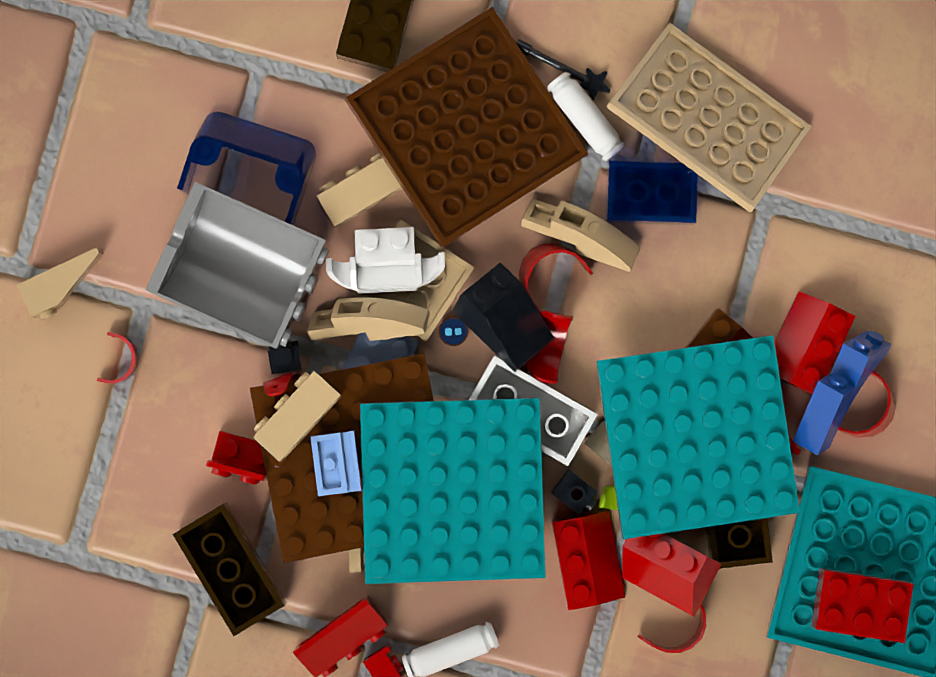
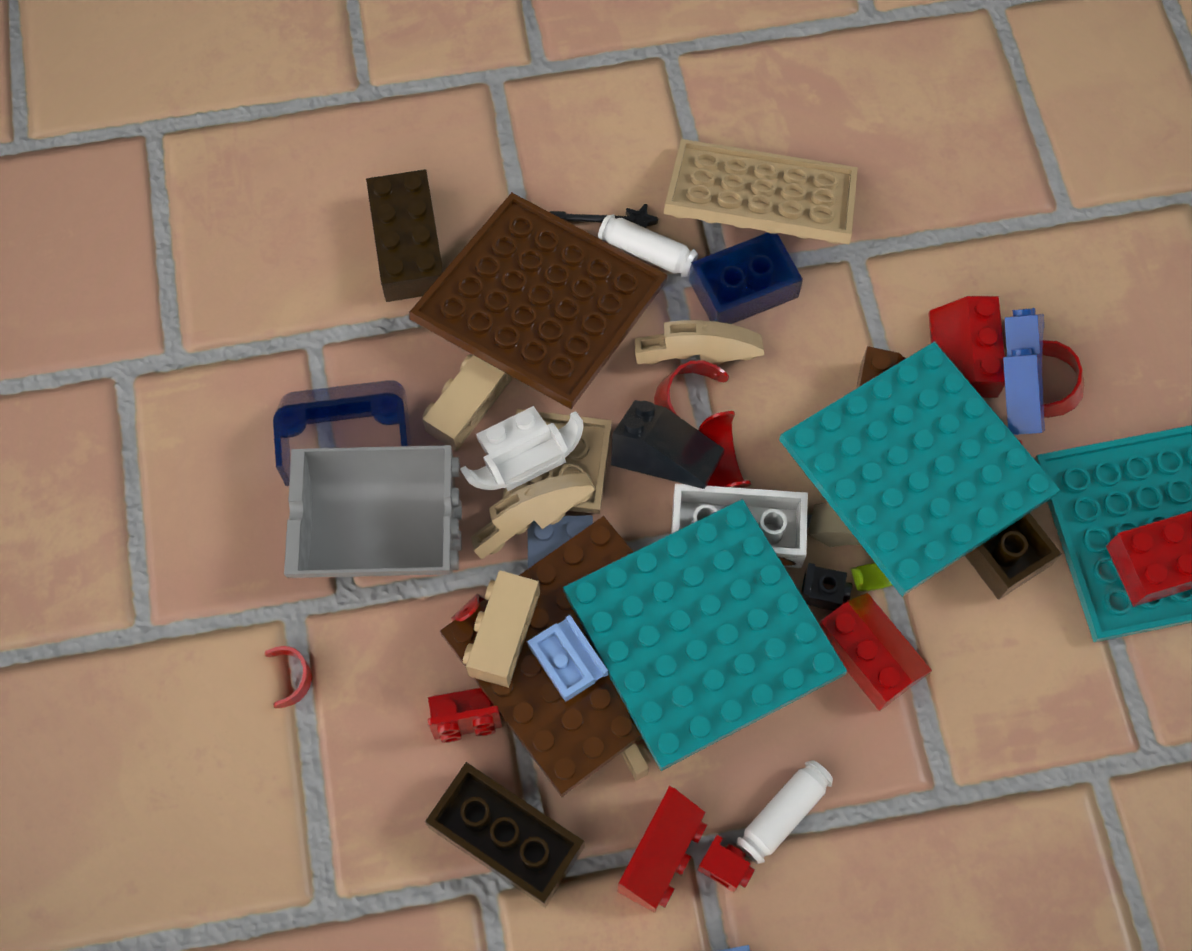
camera: 20 degrees left, 20 degrees down
(53, 287) = (189, 628): tan slope -> none
(285, 358) = (461, 588): black brick -> none
(453, 331) = (621, 492): dark blue tile -> none
(669, 570) = (963, 610): red slope -> none
(690, 643) = (1025, 655): red piece -> none

